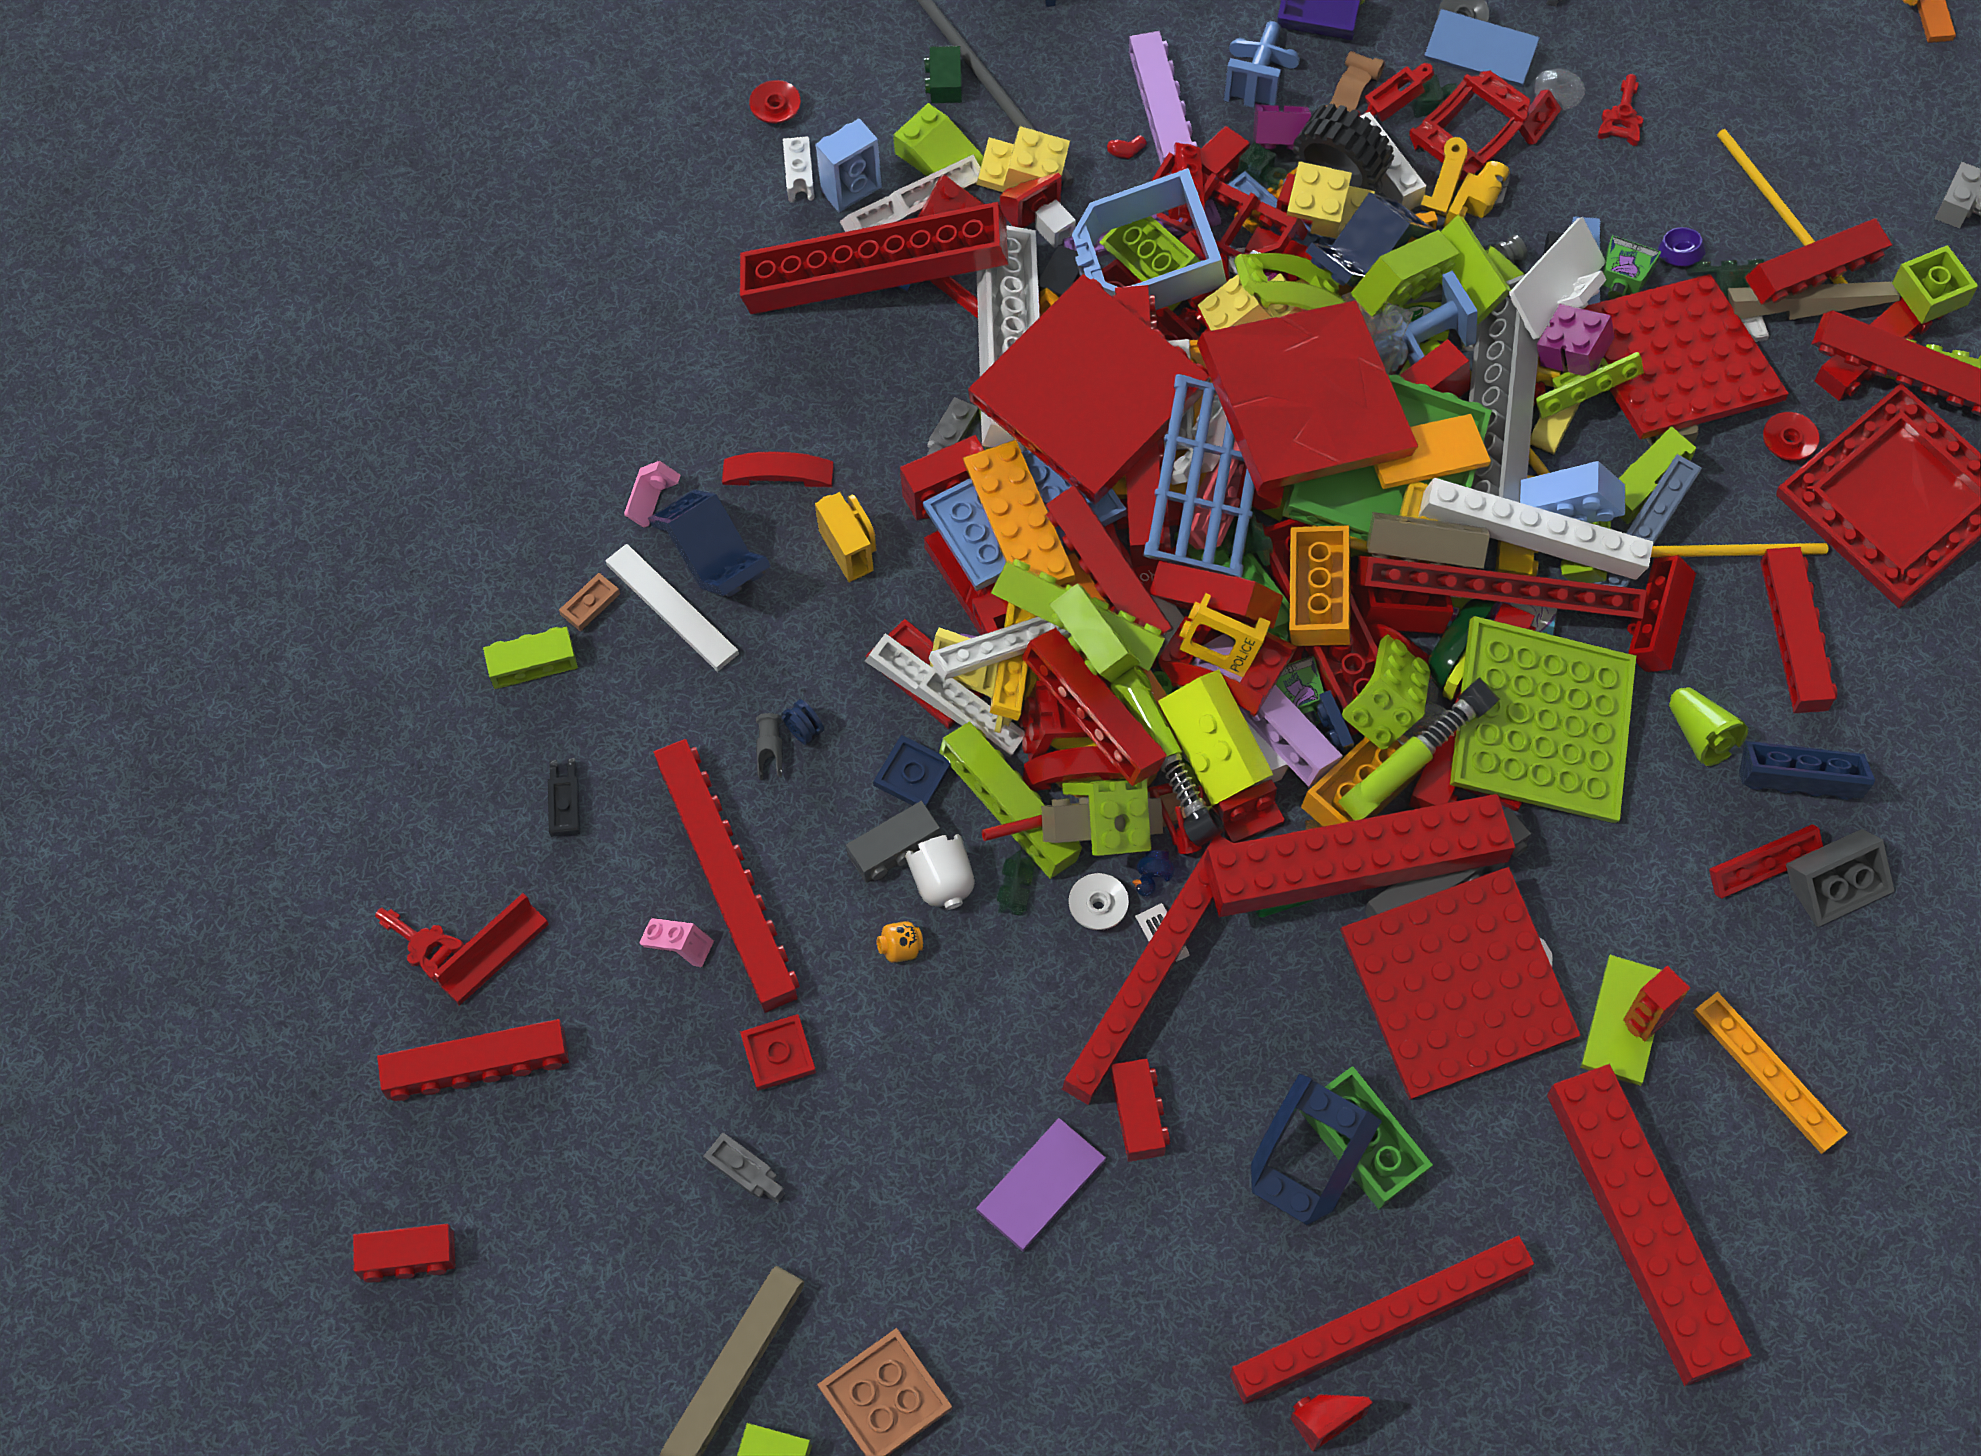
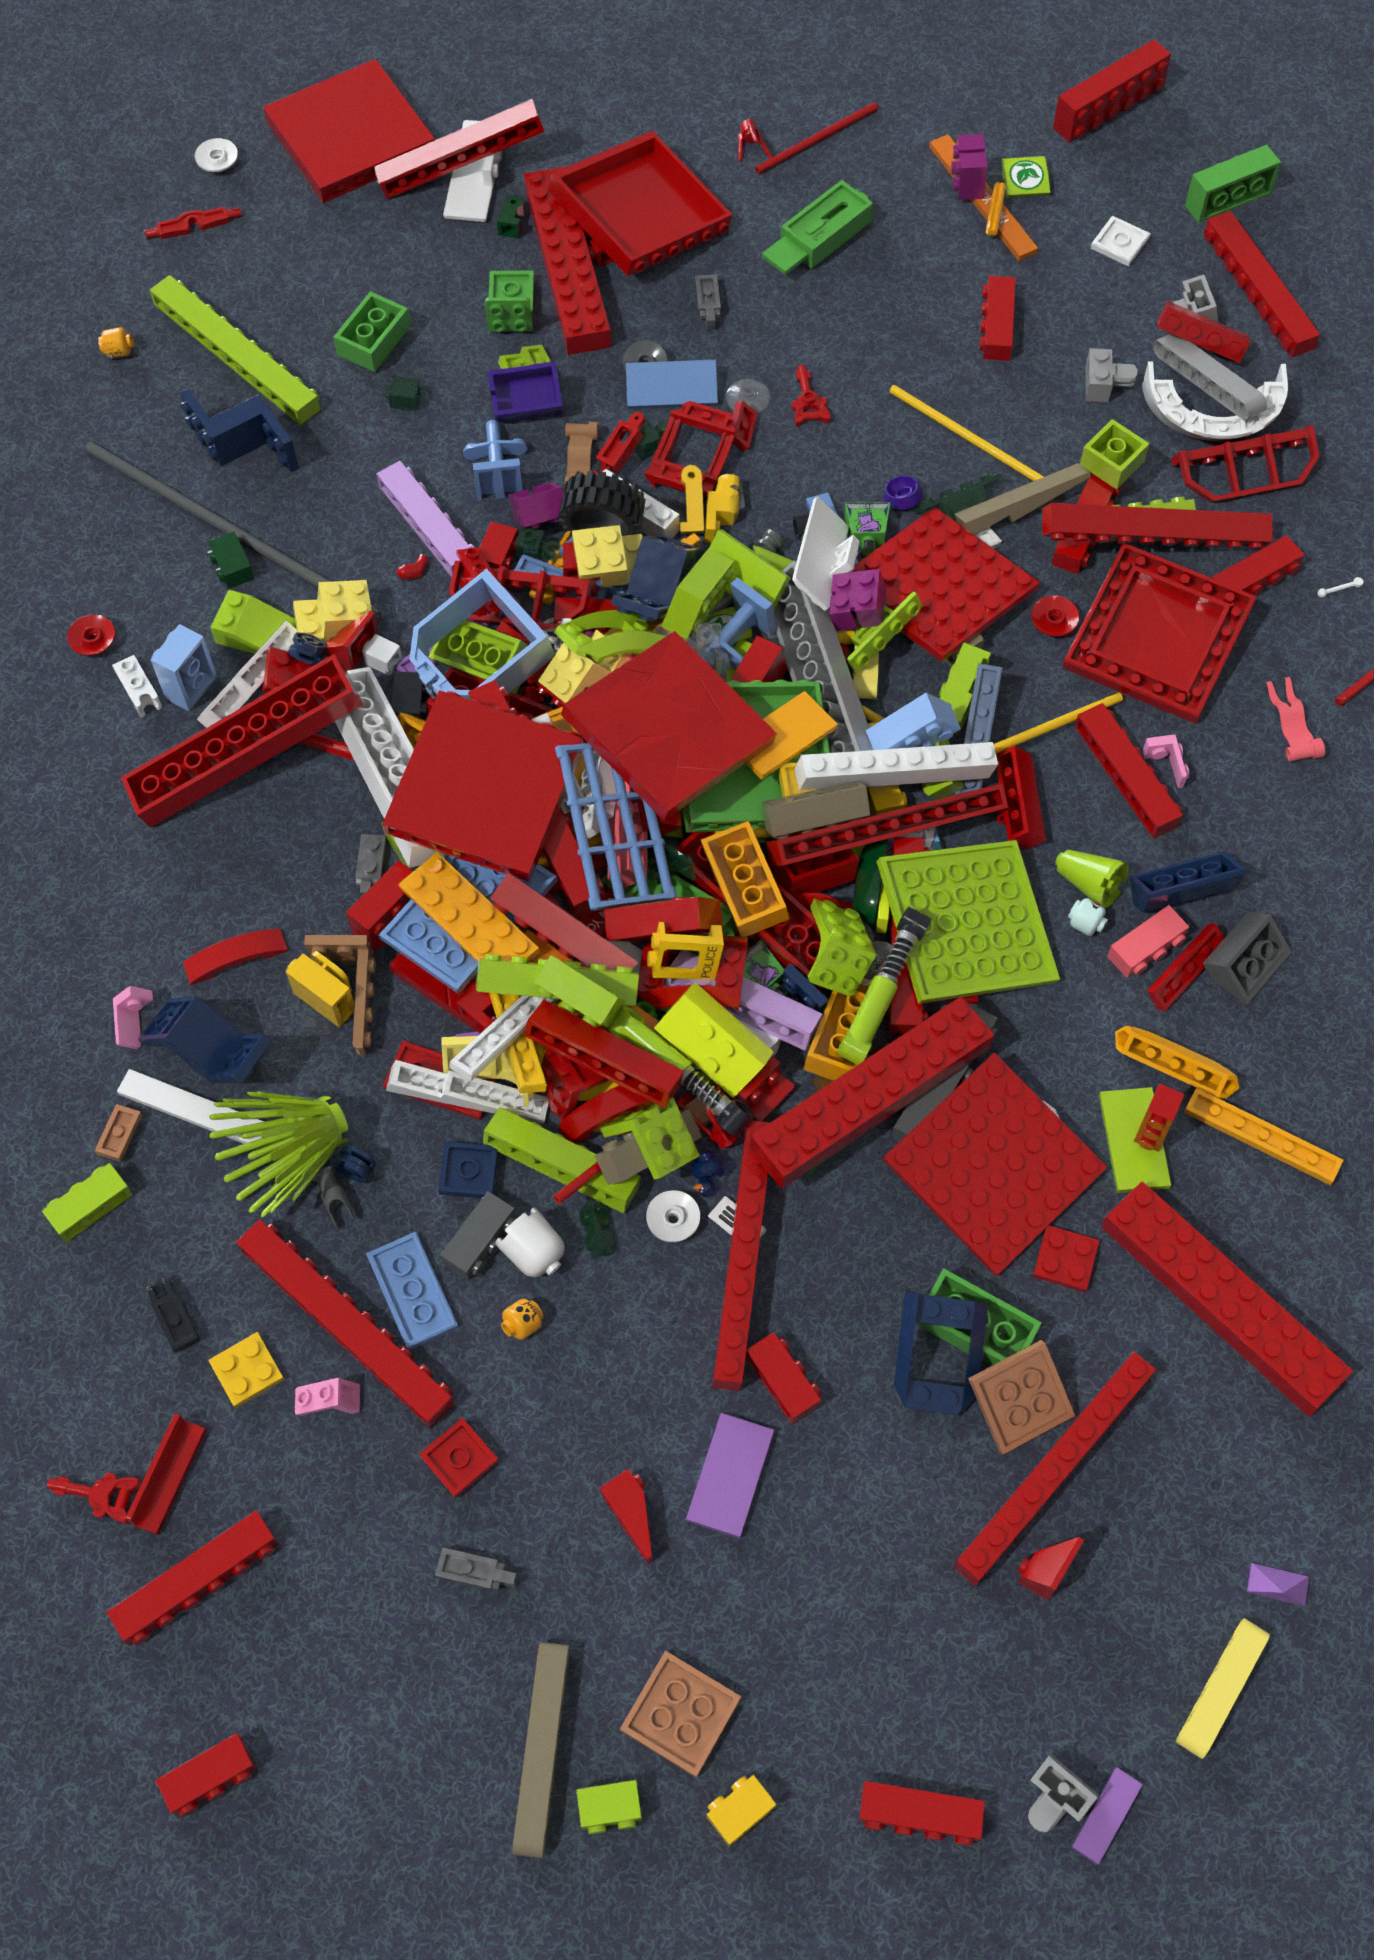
camera: 25 degrees left, 0 degrees up
(611, 881) = (246, 1370): none -> yellow plate
(771, 670) = (302, 1139): none -> lime plant
(805, 870) = (412, 1290): none -> medium blue tile
(893, 510) = (349, 950): none -> medium nougat bracket
(925, 1172) = (627, 1501): none -> red slope
(980, 188) = (307, 648): none -> dark blue wheel
(1377, 1232) = (1021, 1397): none -> nougat plate
(1493, 1112) = (1066, 1258): none -> red plate
(1680, 766) = (1087, 917): none -> light aqua head
(1708, 956) = (1176, 1061): none -> light orange brick
(1735, 819) = (1148, 942): none -> coral brick
(1818, 262) = (1015, 467): red brick -> none
(1850, 618) = (1168, 746): none -> bright pink bracket
(1875, 95) = (998, 318): none -> red brick

